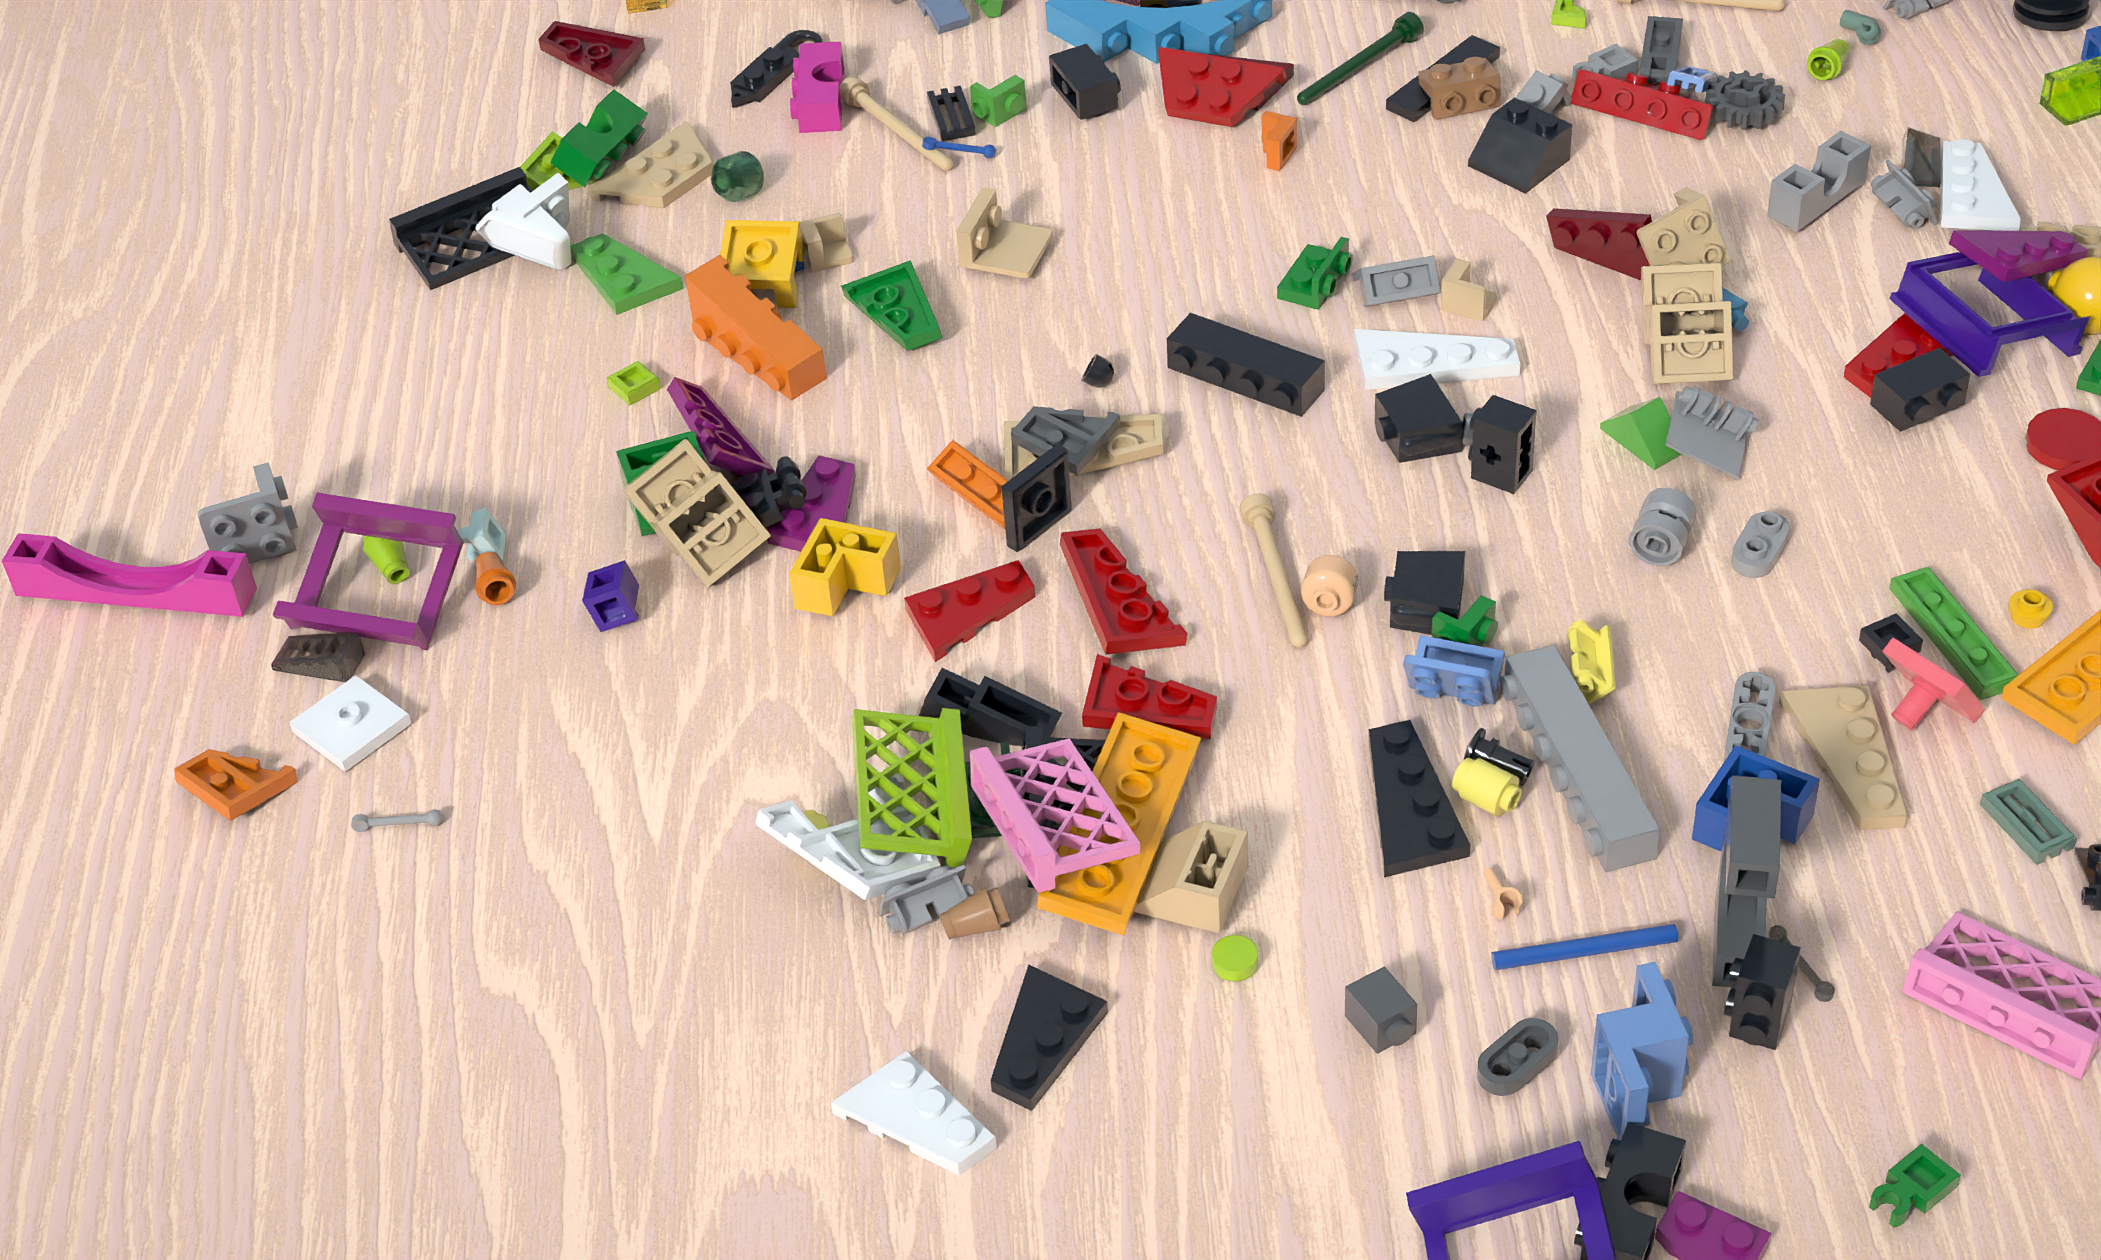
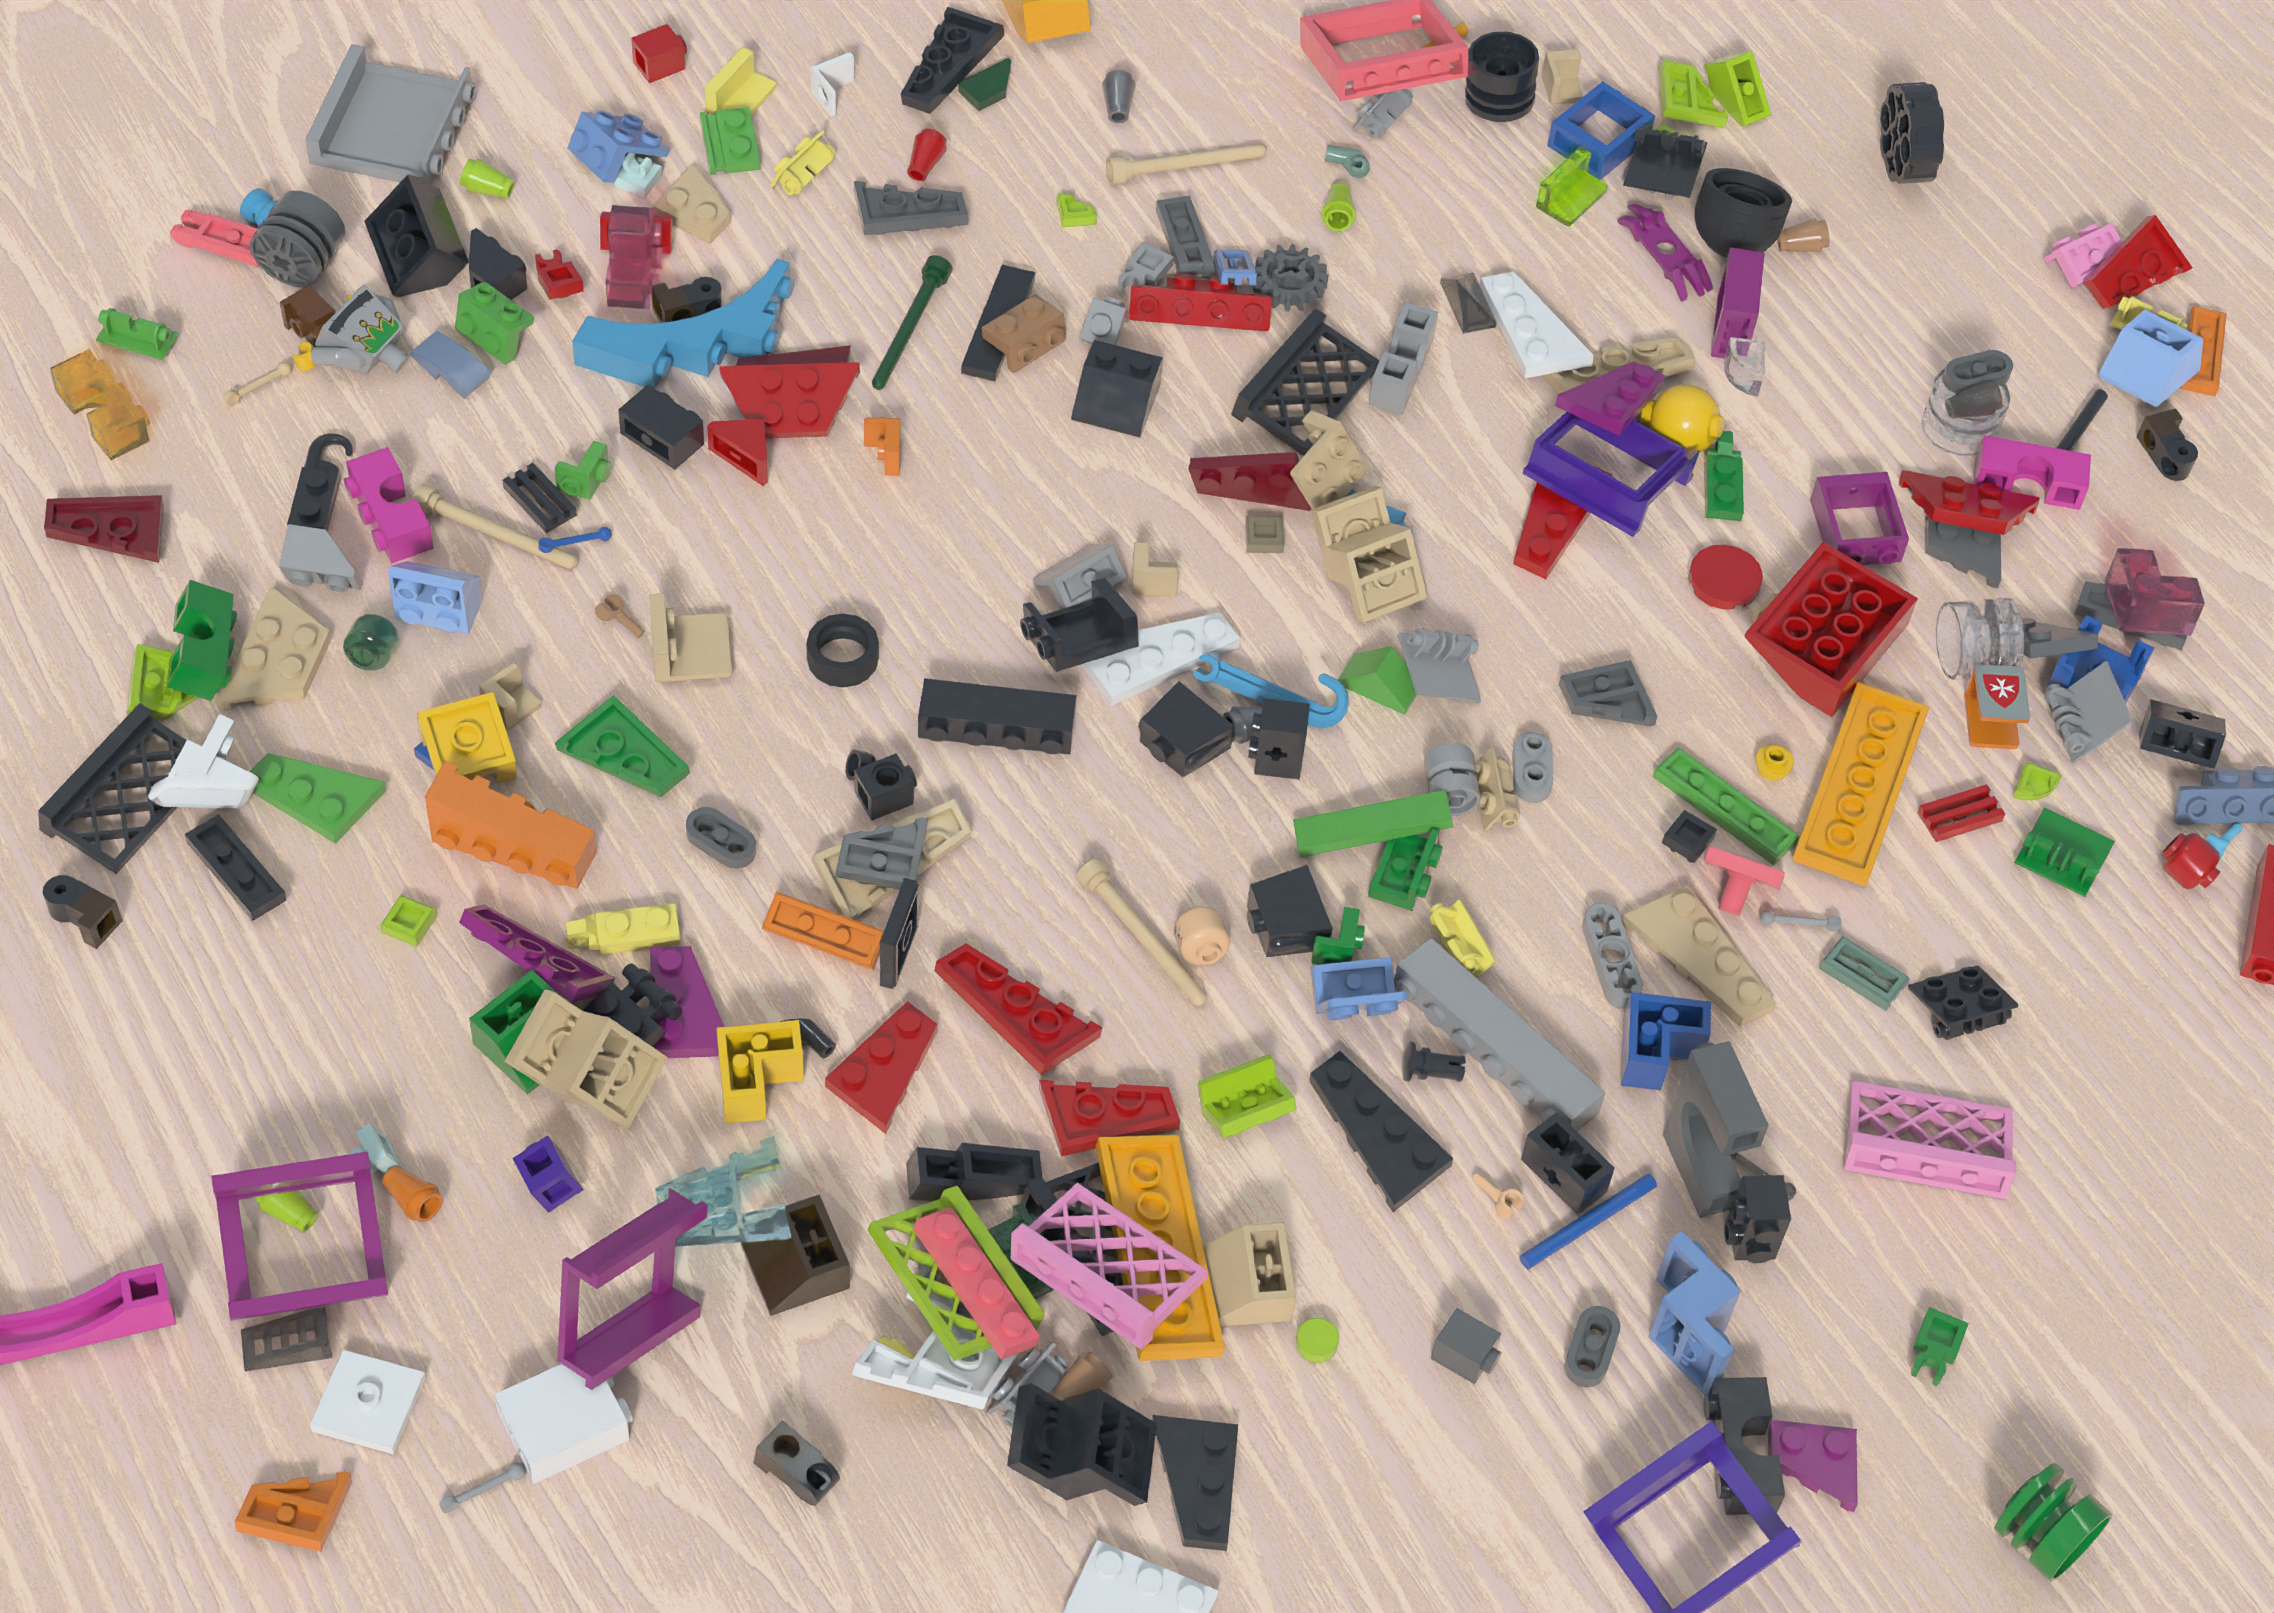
camera: 35 degrees left, 10 degrees up
(253, 522) = (139, 1226): light grey bracket -> none
(382, 302) = (82, 906): none -> leg
(496, 784) = (561, 1421): none -> white brick
(520, 306) = (235, 867): none -> black plate
(597, 734) = (648, 1319): none -> magenta piece
(670, 889) = (796, 1464): none -> leg
(732, 107) = (314, 557): none -> light grey slope
(740, 659) = (722, 1193): none -> clear light blue wing
(783, 724) = (803, 1266): none -> dark brown slope
(808, 437) = (626, 929): none -> light yellow hinge
(810, 155) = (435, 596): none -> light blue slope
(915, 561) = (815, 1037): none -> black arm
(922, 792) = (976, 1283): none -> coral plate
(935, 391) = (724, 837): none -> dark grey plate
(937, 959) = (1082, 1444): none -> black bracket
(955, 208) = (616, 605): none -> medium nougat hand
(1107, 389) = (881, 799): none -> black brick
(1143, 298) = (842, 627): none -> black tyre
(1148, 112) = (741, 445): none -> red slope
(1287, 726) = (1244, 1097): none -> lime bracket
(1315, 274) = (1001, 591): green bracket -> none
(1365, 318) = (1083, 630): none -> black panel
(1487, 786) = (1439, 1096): light yellow brick -> none
(1546, 432) = (1259, 688): none -> dark azure piece
(1558, 539) = (1372, 823): none -> bright green tile
(1571, 588) = (1404, 868): none -> green bracket
(1583, 881) = (1567, 1163): none -> black brick
(1598, 292) = (1264, 534): none -> dark tan tile
(1696, 164) = (1280, 369): none -> black fence
(1706, 555) = (1494, 780): none -> tan hinge
(1877, 502) = (1609, 694): none -> dark grey wing
(1914, 204) = (1489, 357): light grey hinge -> none
(1920, 389) = (1593, 566): black brick -> none
(2014, 766) = (1831, 923): none -> light grey hinge

